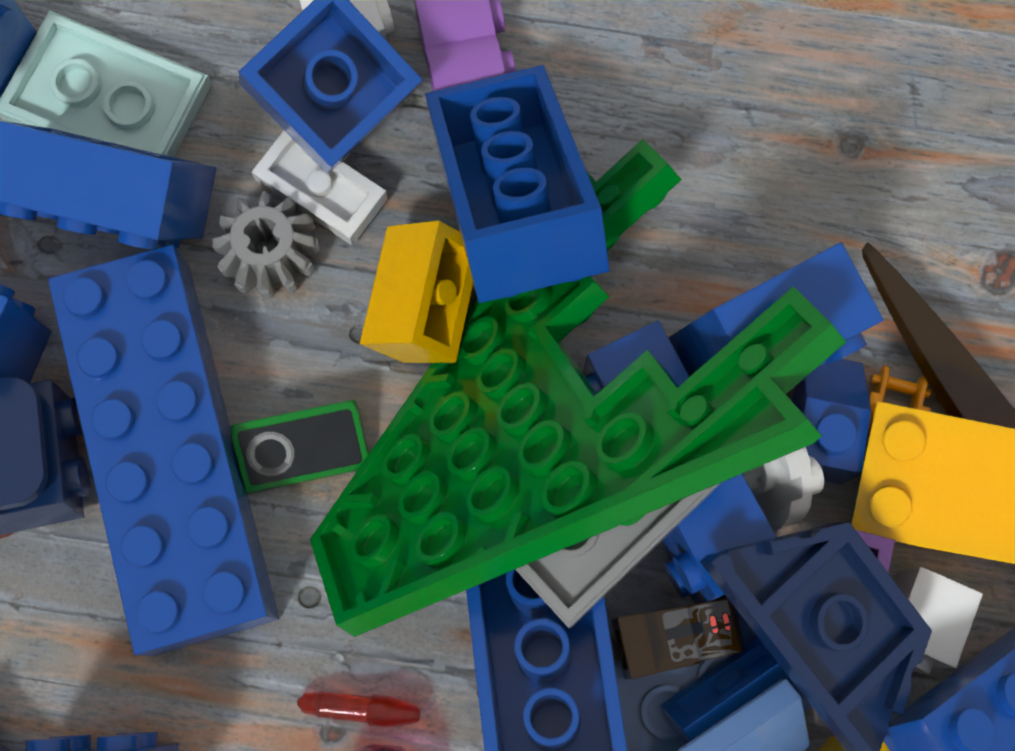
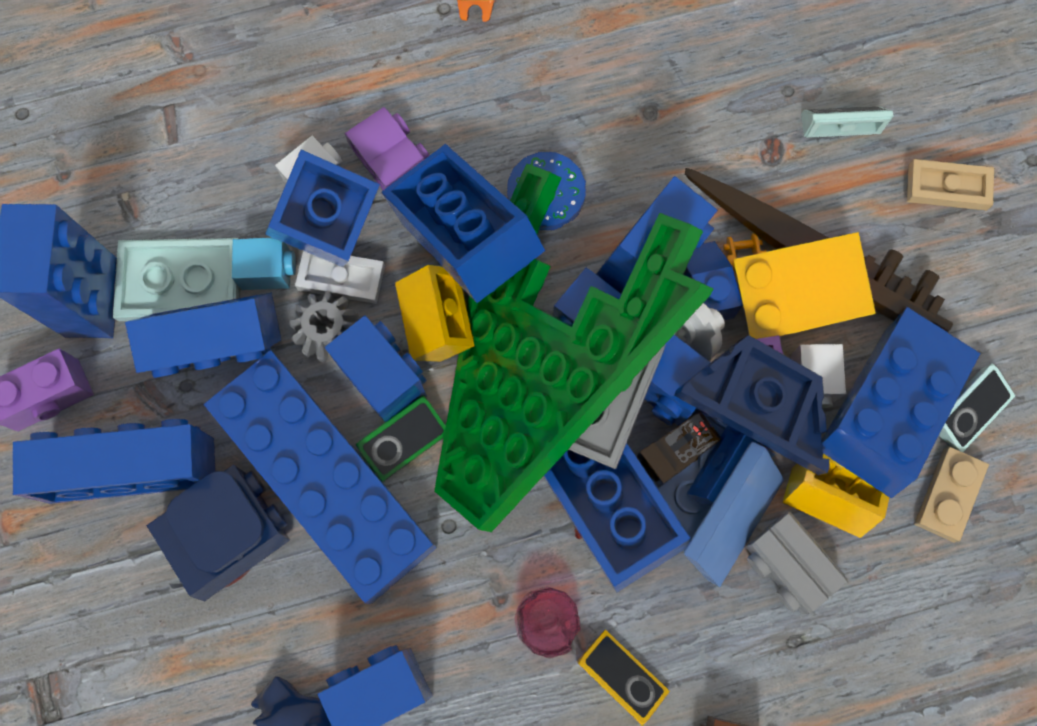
camera: 20 degrees left, 0 degrees up
(221, 123) = (262, 264): none -> medium azure brick
(301, 333) = (375, 368): none -> blue brick
(373, 709) = (518, 574): clear red piece -> none
(686, 205) = (570, 191): none -> blue tile

